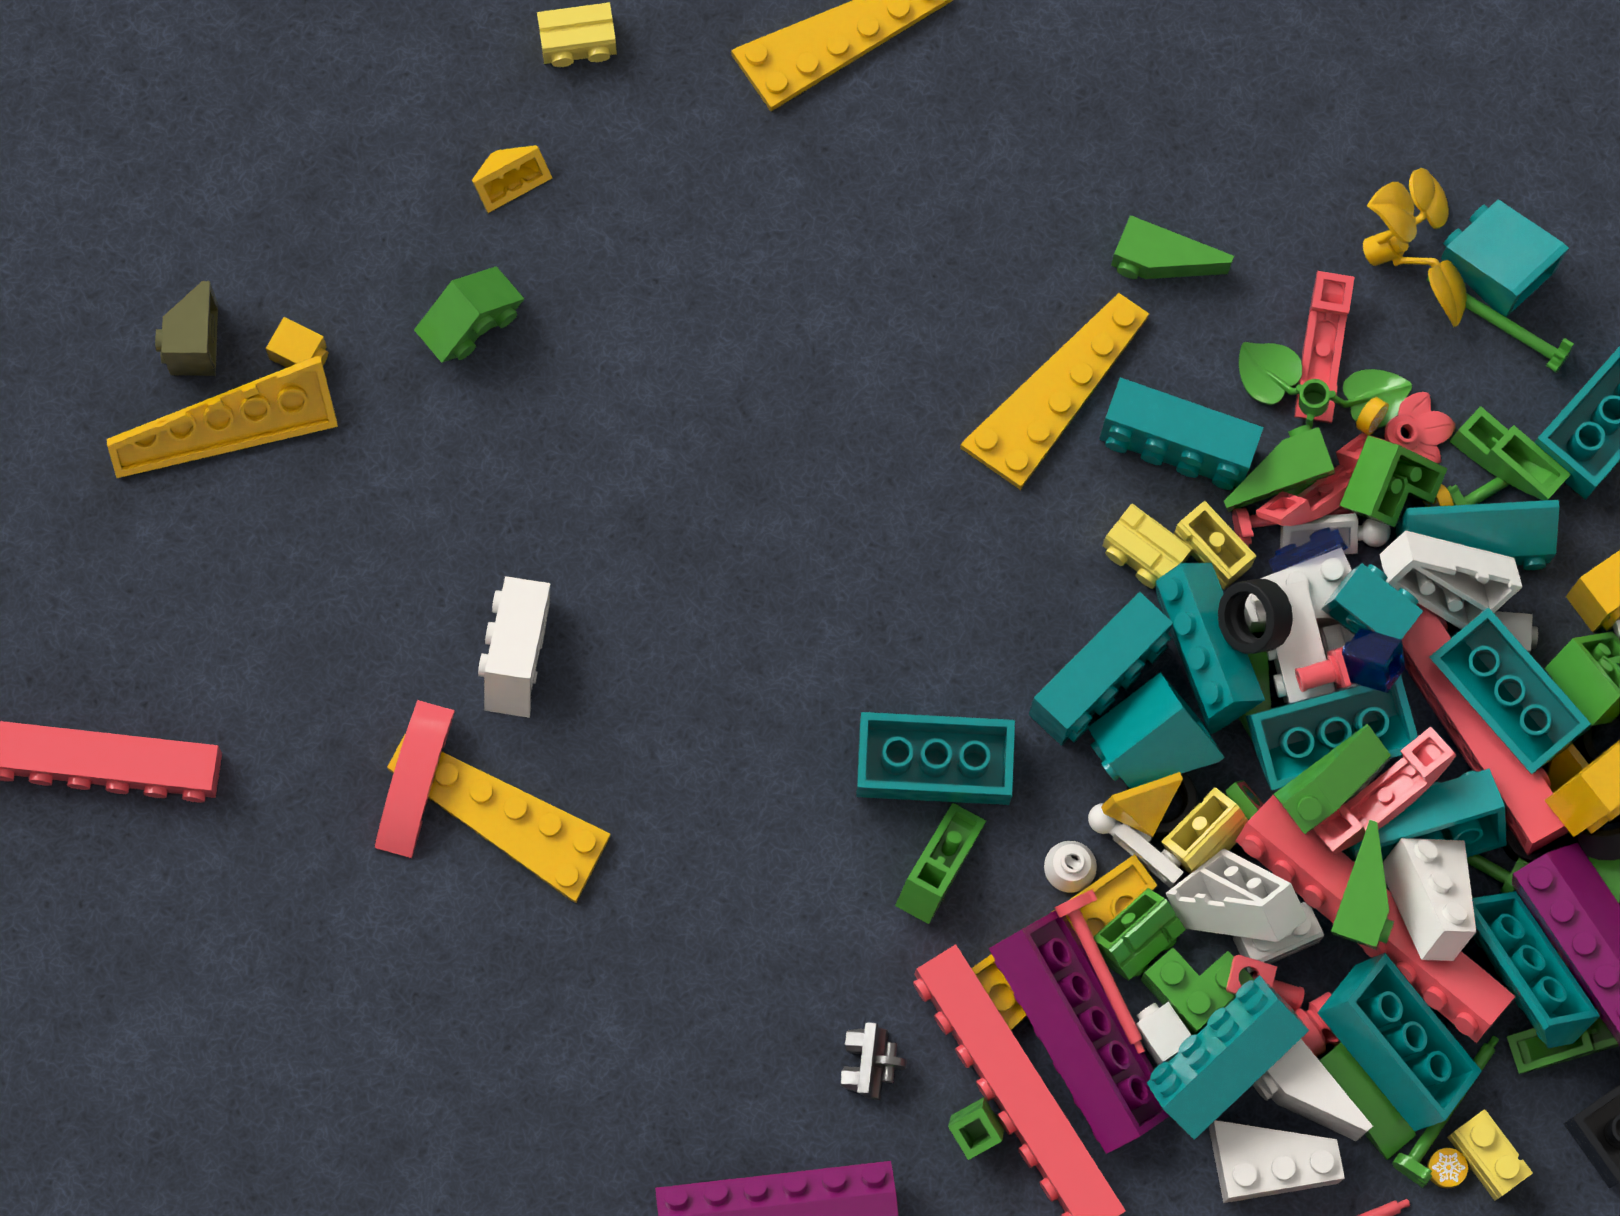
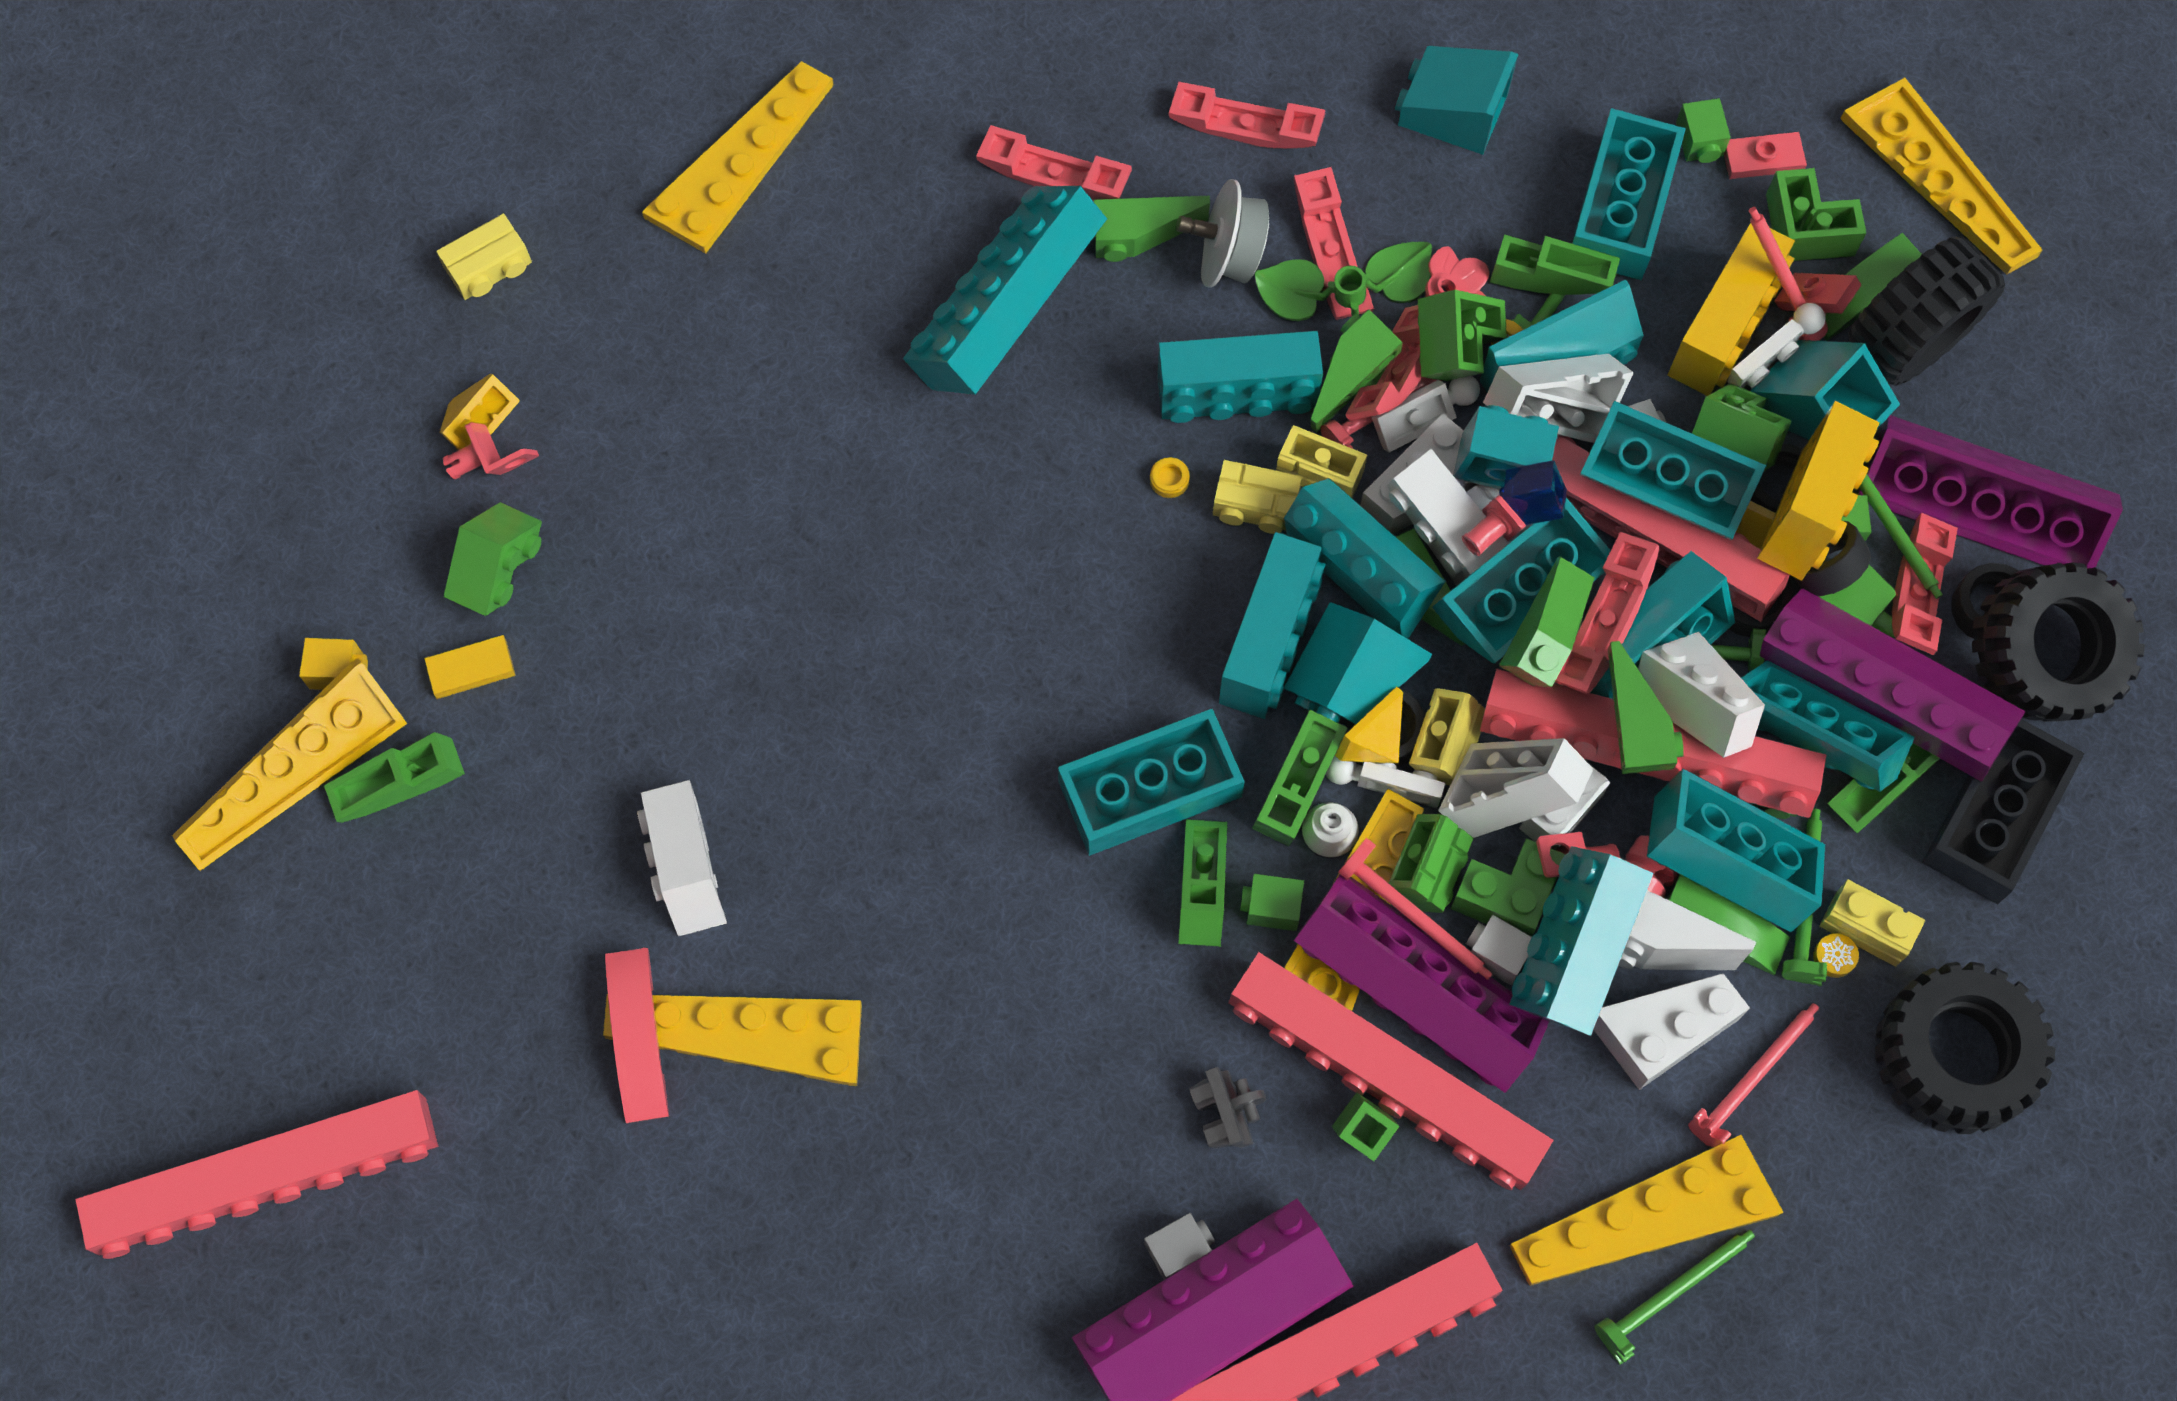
camera: 20 degrees left, 5 degrees down
(190, 334) = (215, 694): olive slope -> none
(308, 470) = (394, 777): none -> bright green slope
(410, 399) = (470, 666): none -> yellow tile
(499, 214) = (484, 453): none -> coral bracket
(778, 1153) = (1179, 1245): none -> light grey brick
(990, 906) = (1273, 902): none -> bright green brick
(1013, 264) = (1004, 288): none -> teal brick
(1041, 409) = (1093, 416): yellow wing -> none
(1062, 812) = (1299, 778): none -> bright green slope
(1080, 496) = (1169, 477): none -> yellow tile
(1109, 167) = (1014, 158): none -> coral slope
(1232, 617) = (1376, 517): black tyre -> none
(1236, 302) = (1232, 235): none -> piece
(1244, 798) = (1461, 684): bright green tile -> none
(1302, 195) = (1245, 122): none -> coral slope
(1321, 543) = (1419, 420): clear blue plate -> none
(1372, 415) = (1408, 285): yellow tile -> none
(1396, 209) = (1362, 83): yellow plant -> none
(1556, 356) = (1549, 164): bright green piece -> none

